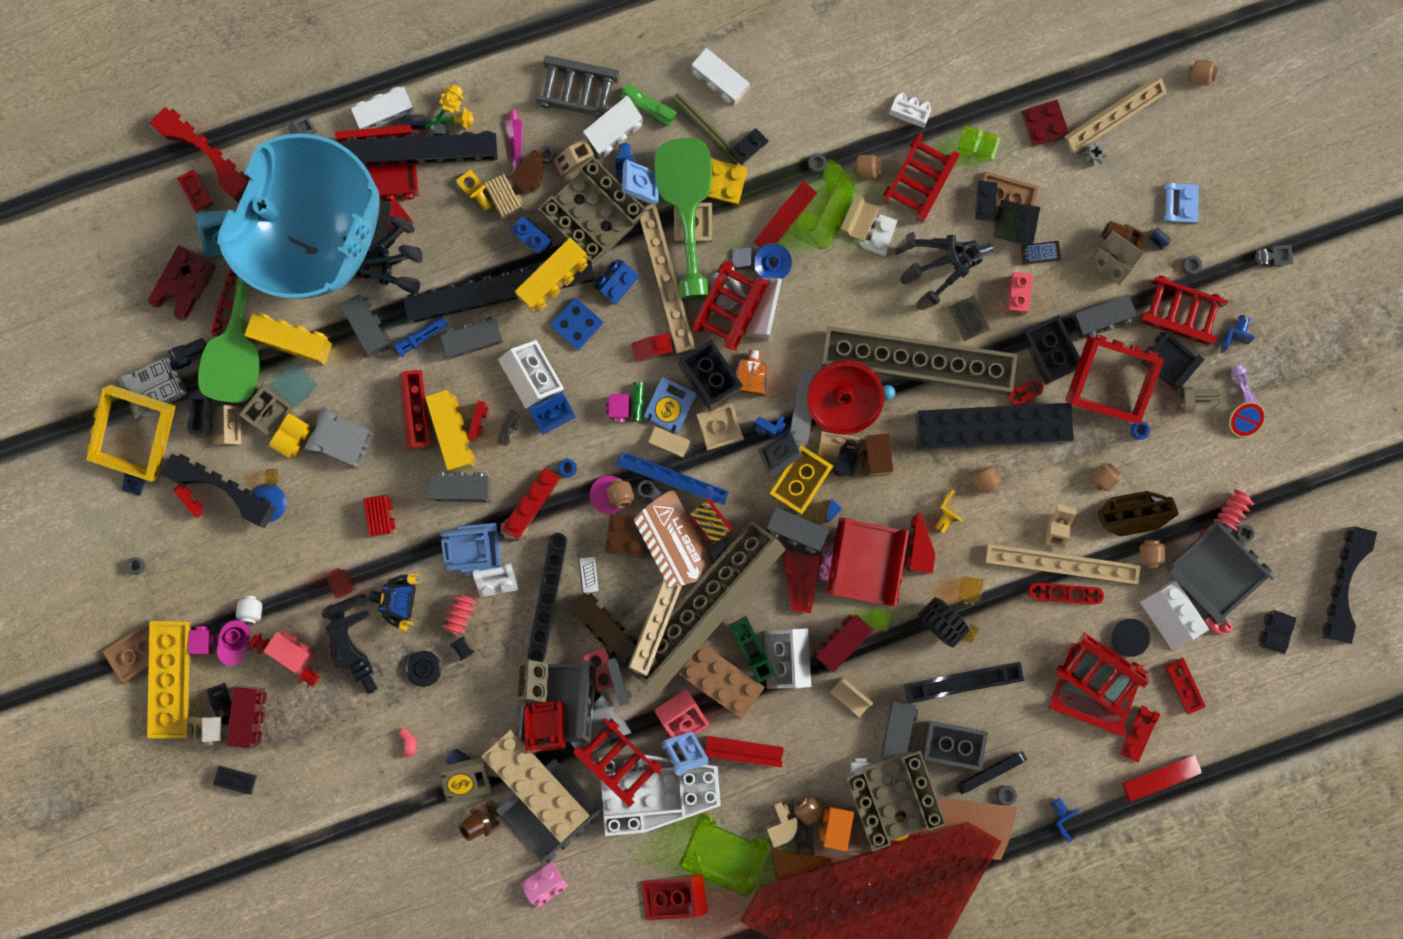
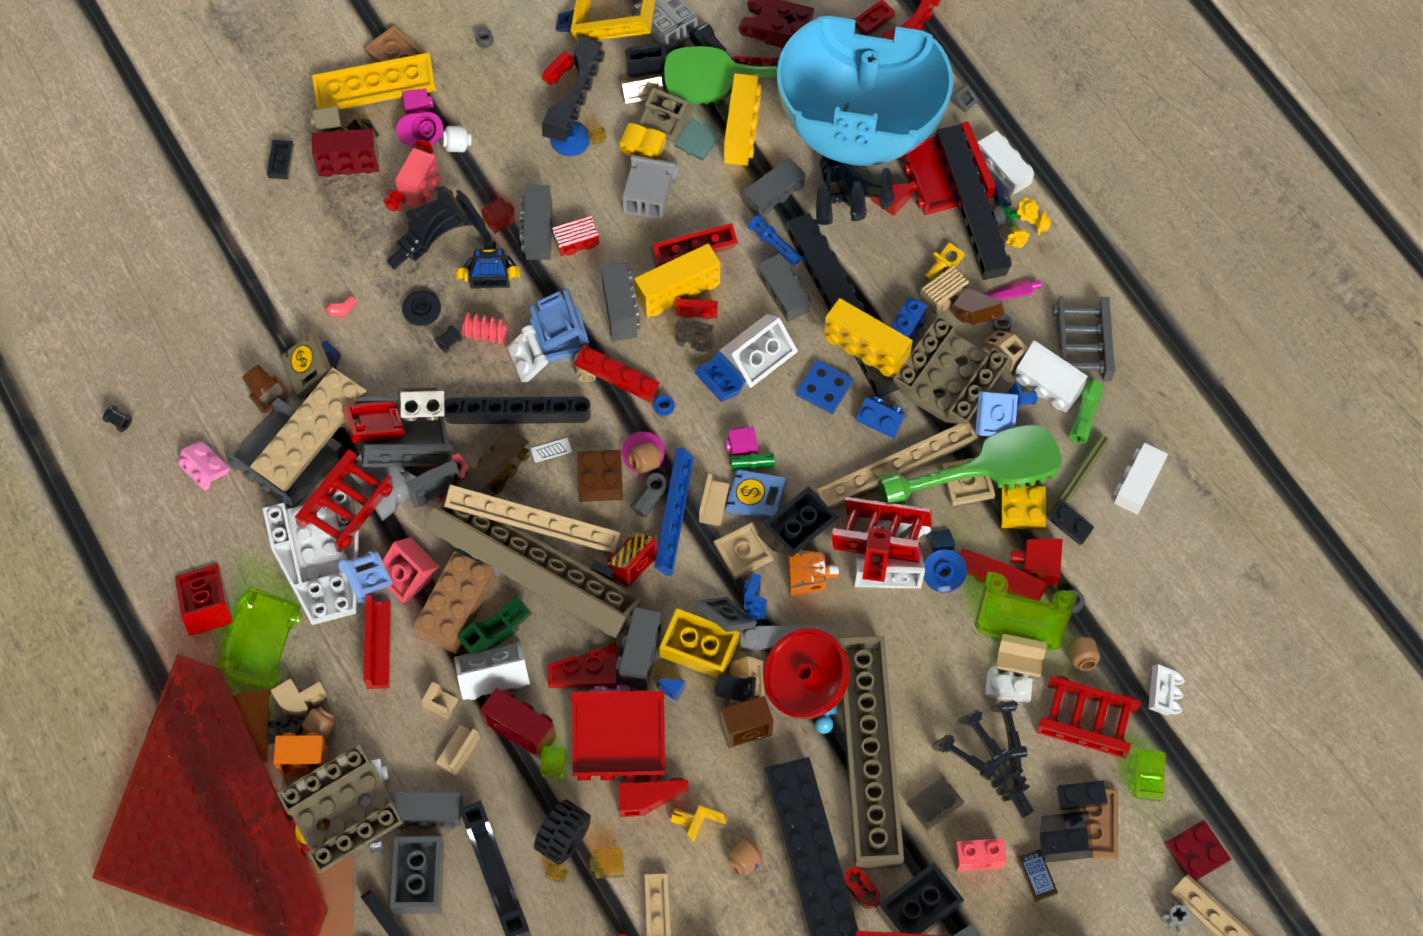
camera: 85 degrees right, 20 degrees down
(360, 549) = (536, 222): none -> dark grey brick
(652, 347) = (817, 466): red slope -> none
(673, 541) = (603, 519): nougat sticker -> none
(762, 314) = (877, 544): none -> red torso
(778, 180) = (1041, 559): none -> red torso
(806, 705) = (439, 701): none -> tan panel

